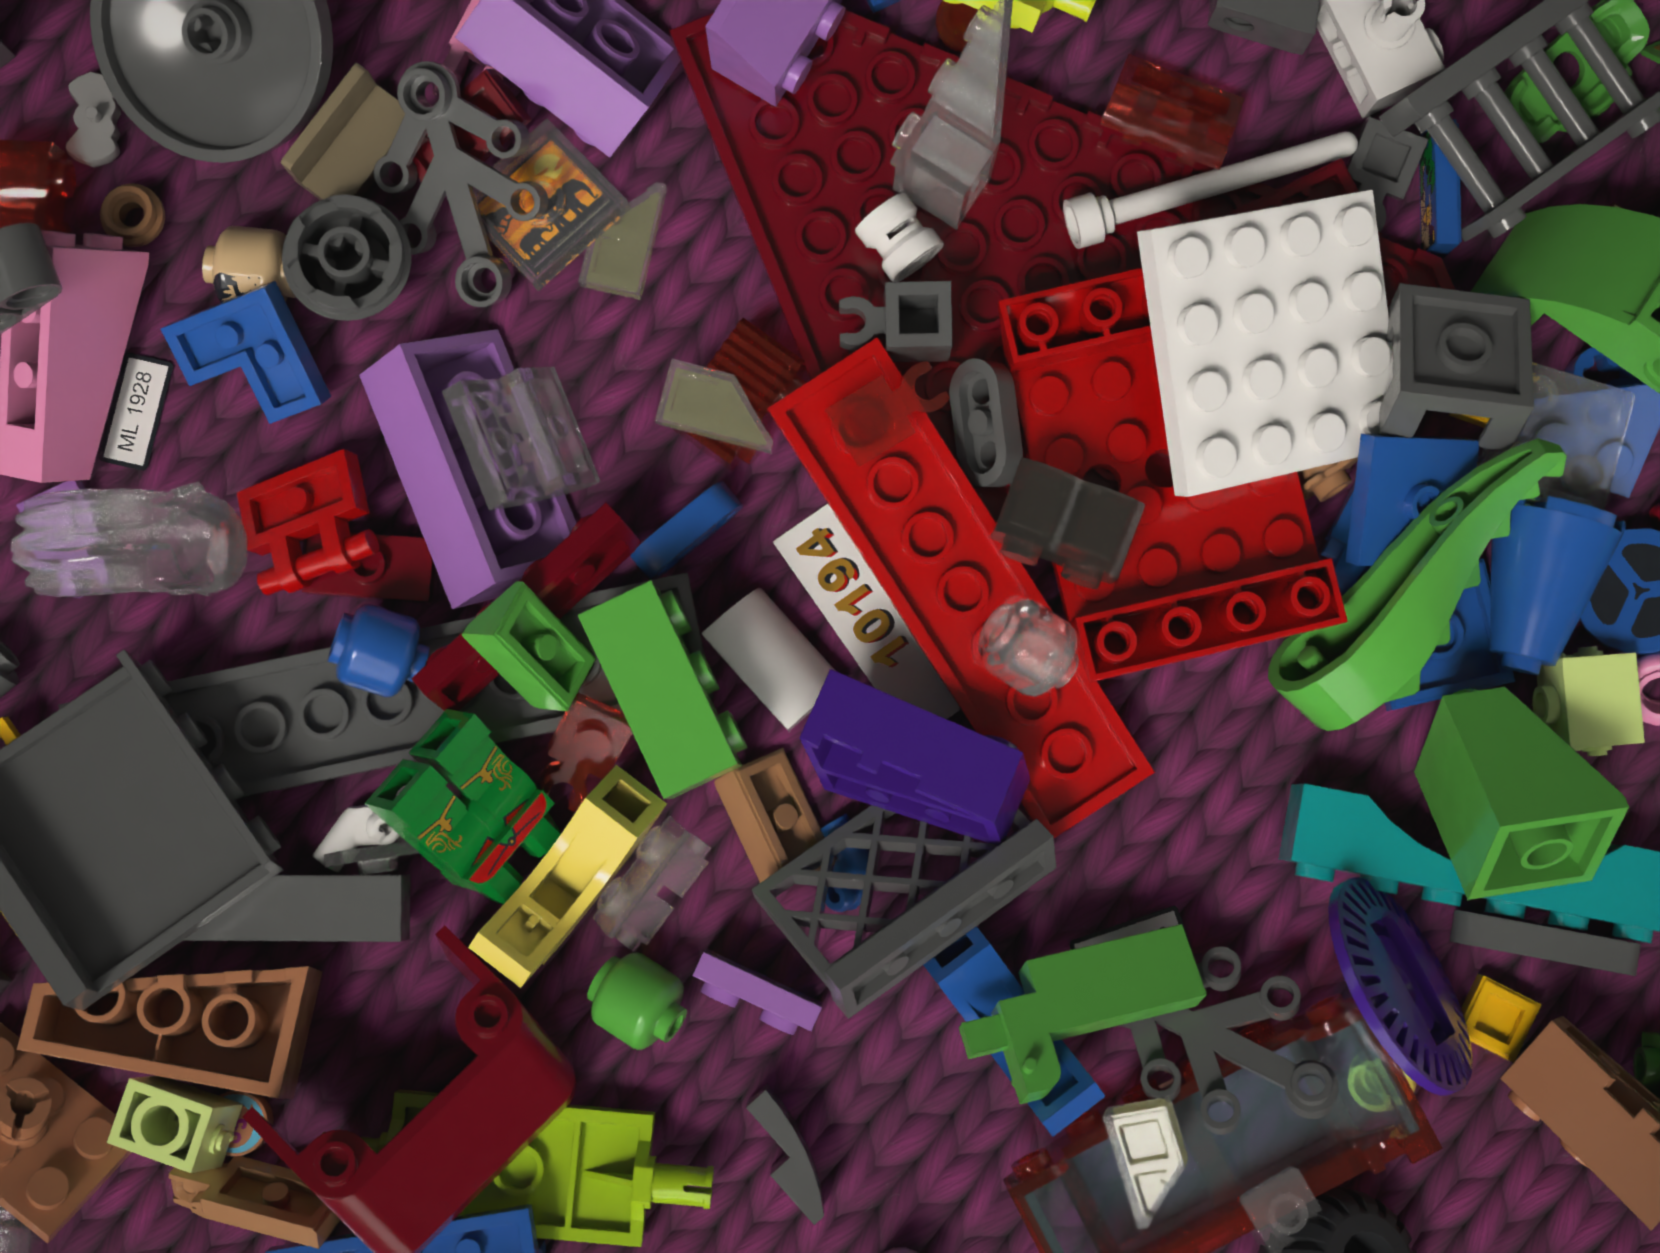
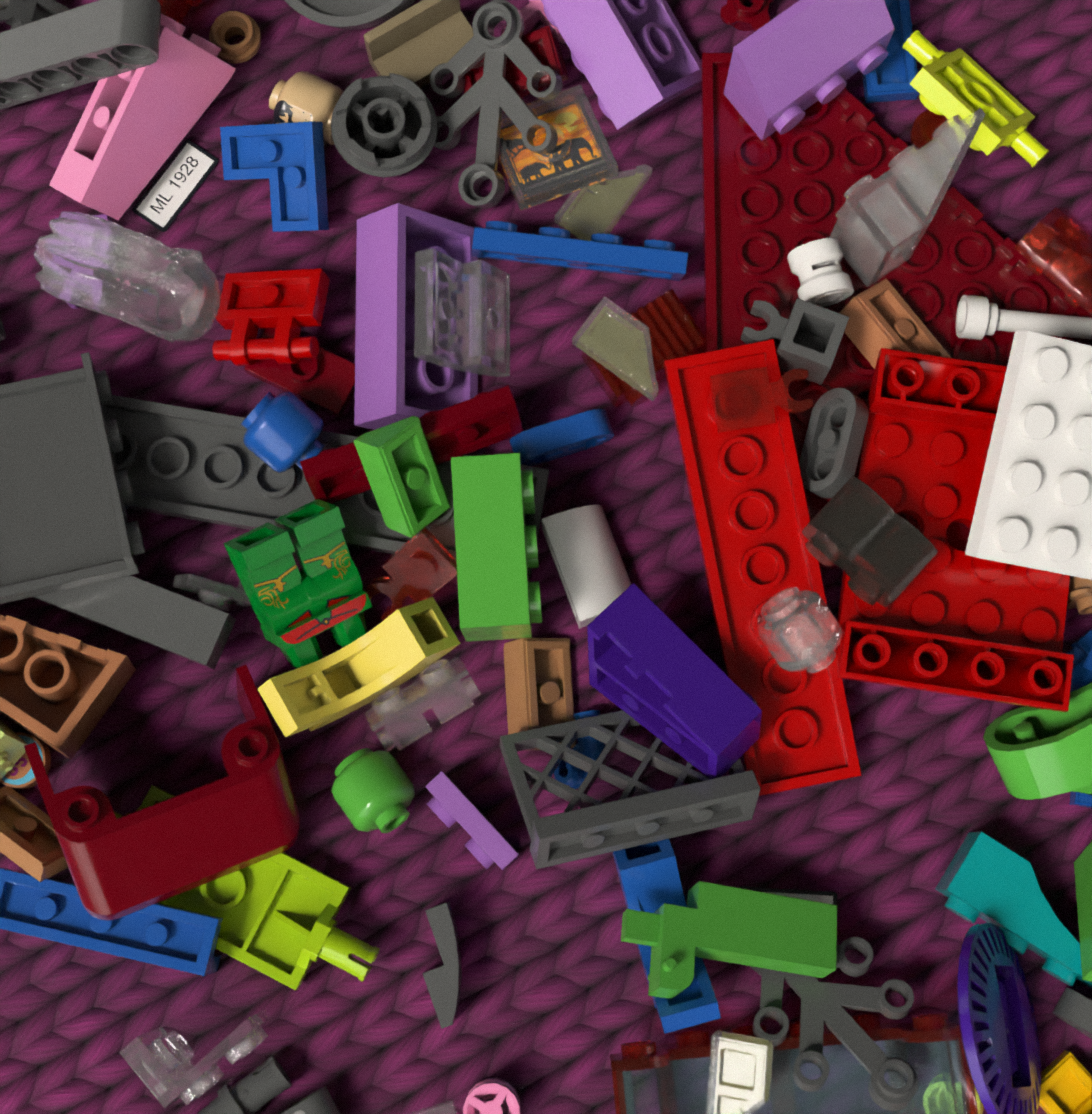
camera: 25 degrees right, 5 degrees down
(355, 828) = (210, 565): white arm -> none
(649, 305) = (601, 254): none -> blue plate
(862, 612) = (674, 553): white sticker -> none
(994, 266) = (885, 320): none -> nougat slope

